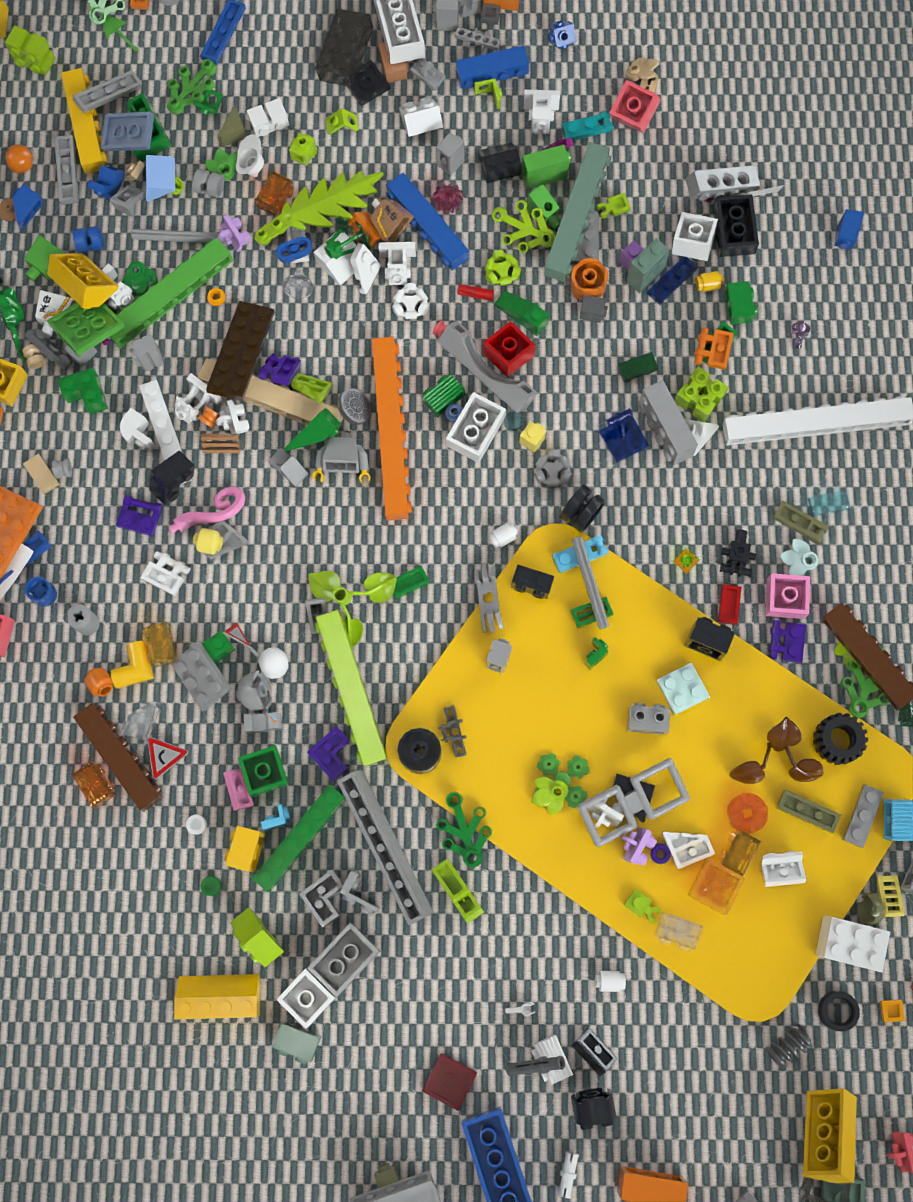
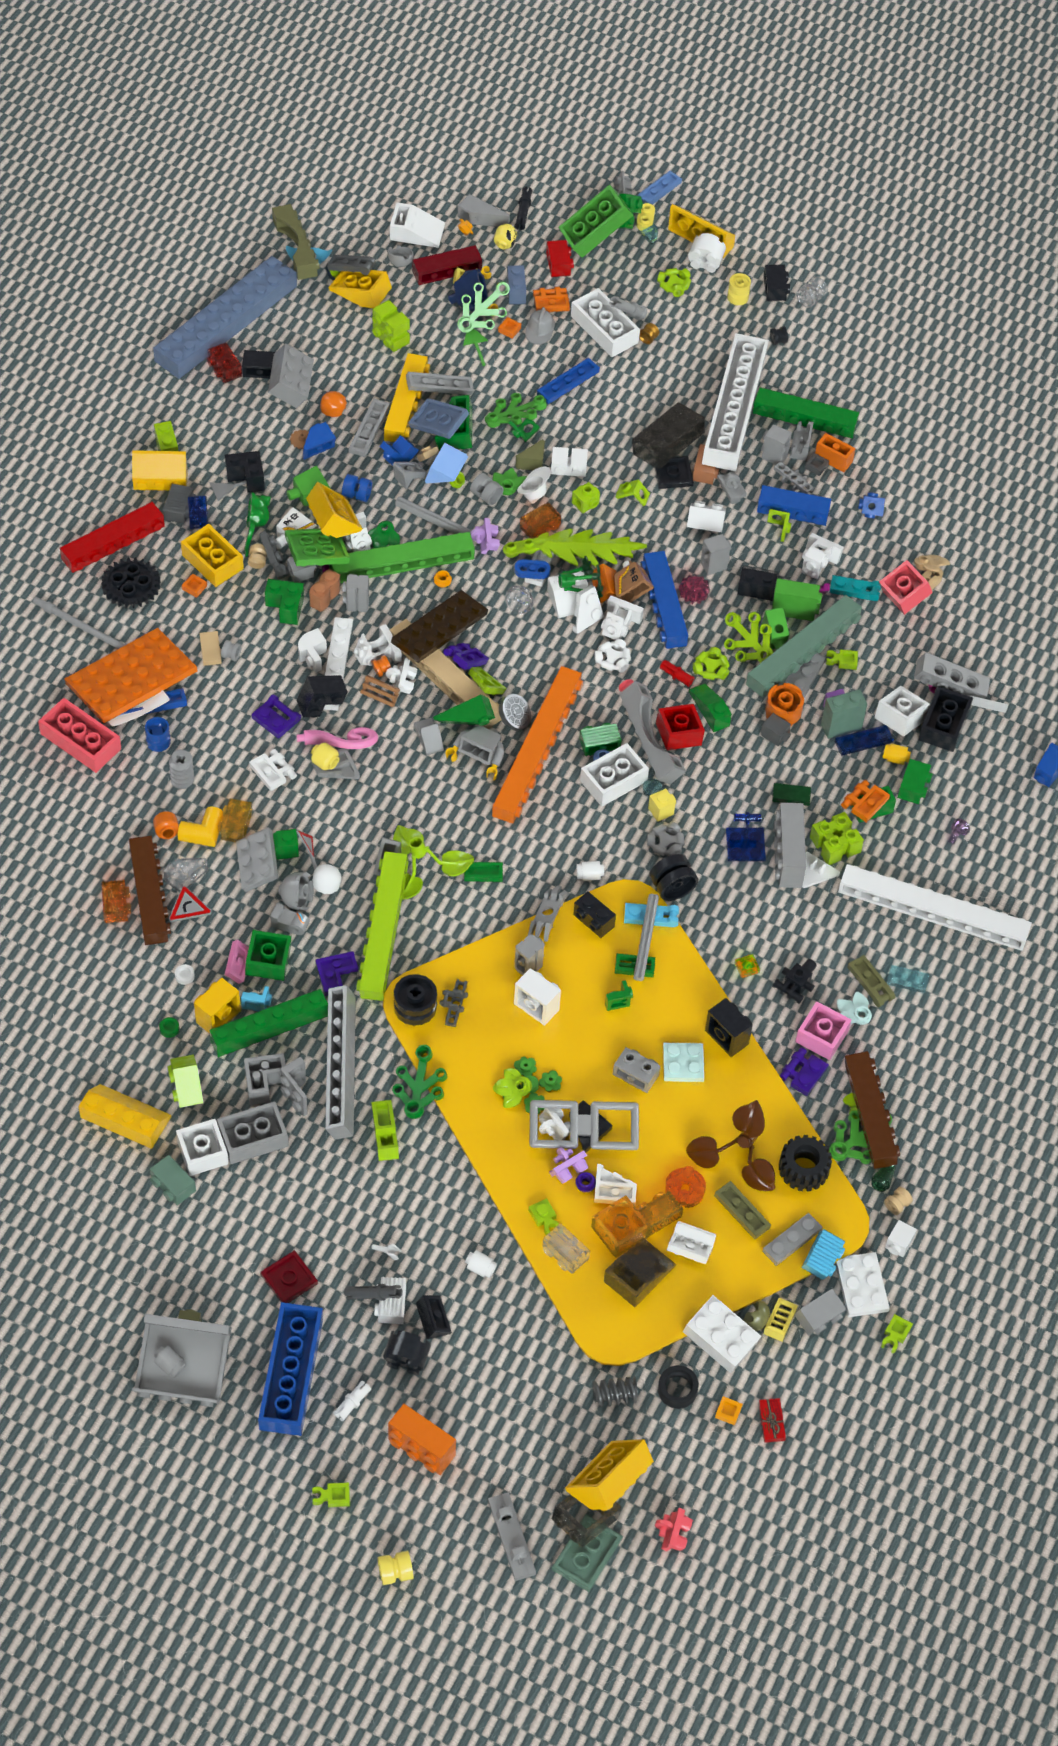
camera: 20 degrees right, 20 degrees down
(115, 362) = (324, 590): none -> nougat brick
(527, 693) = (537, 996): none -> white brick
(729, 604) = (767, 1018): red tile -> none
(753, 920) = (638, 1272): none -> clear smoke slope

